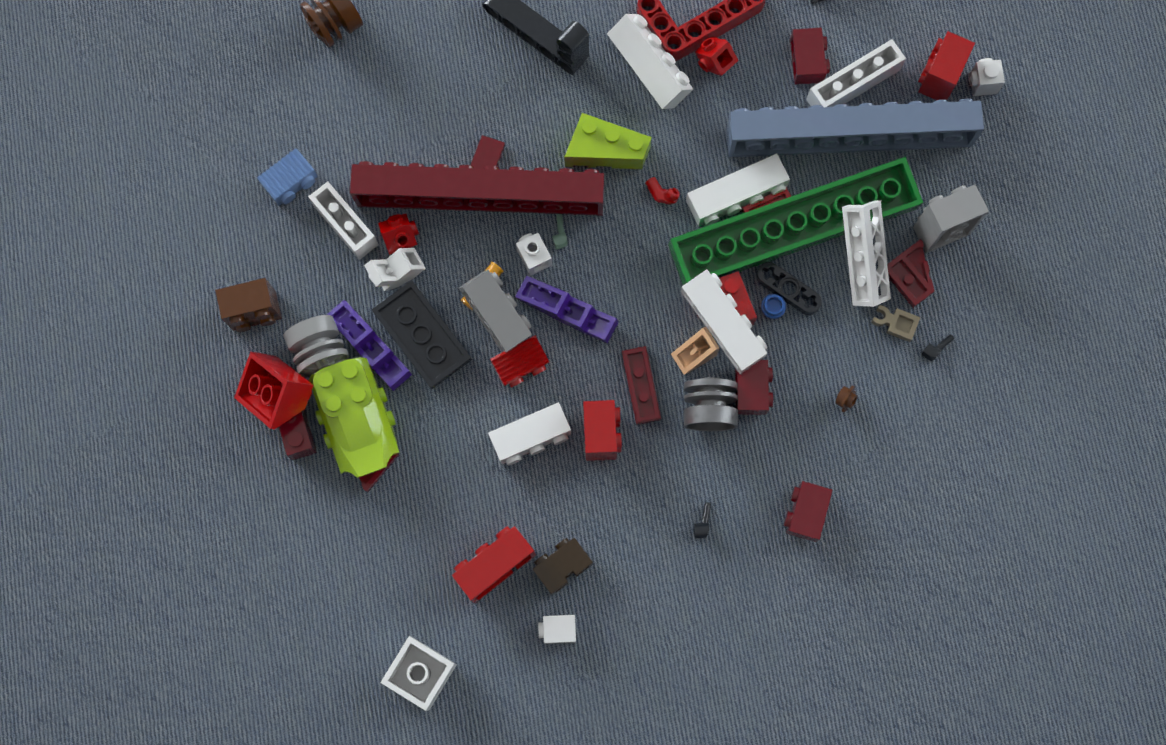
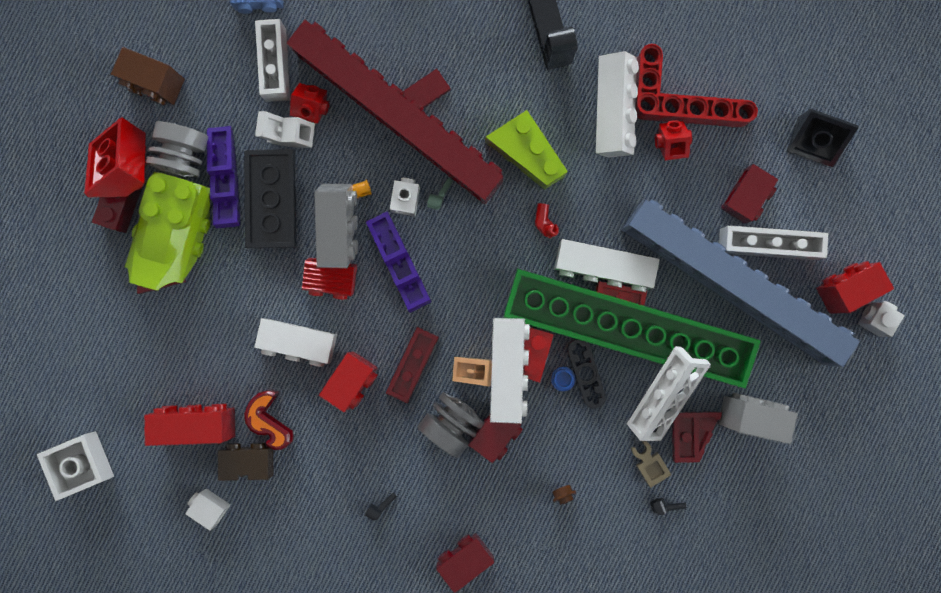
camera: 35 degrees right, 10 degrees up
(554, 522) = (264, 424): none -> dark red animal

